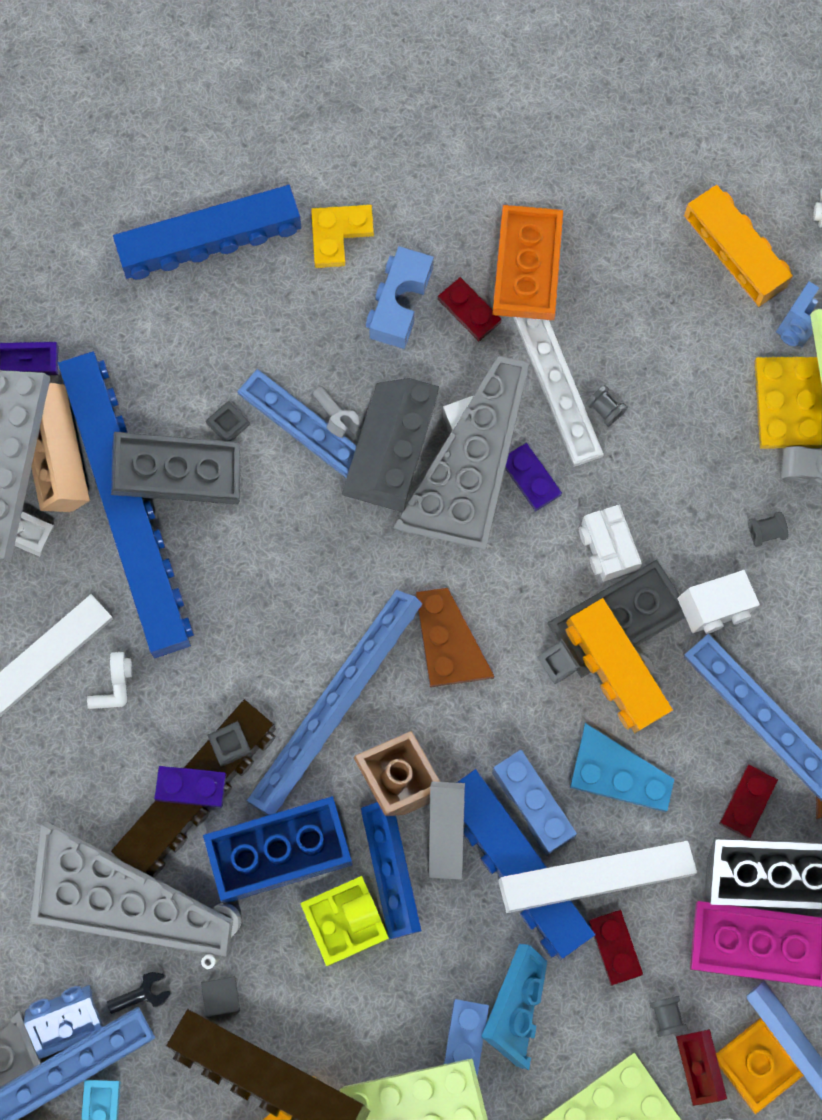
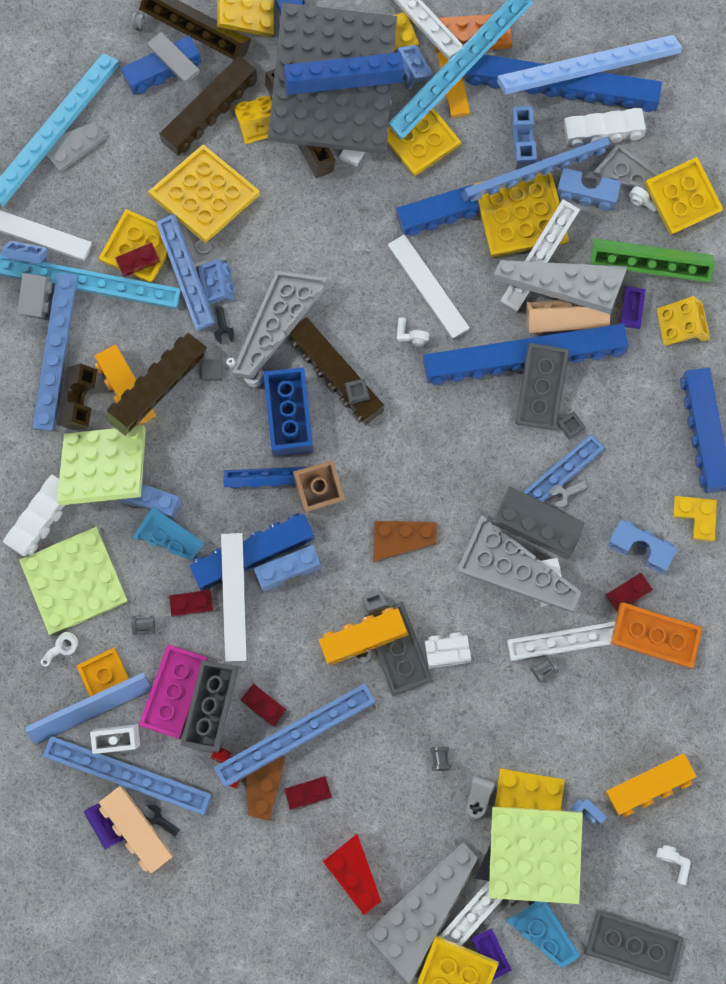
camera: 105 degrees right, 0 degrees up
(41, 287) = (683, 321): none -> yellow bracket
(190, 786) = (335, 365): dark purple plate -> none
(334, 703) = (375, 462): medium blue plate -> none
(344, 921) = (240, 445): neon yellow plate -> none
(446, 830) = (279, 510): light grey tile -> none
(531, 477) = (503, 610): dark purple plate -> none
(618, 773) = (297, 626): dark azure wing -> none
(701, 1067) = (109, 638): dark red plate -> none
(718, 602) = (394, 712): white brick -> none

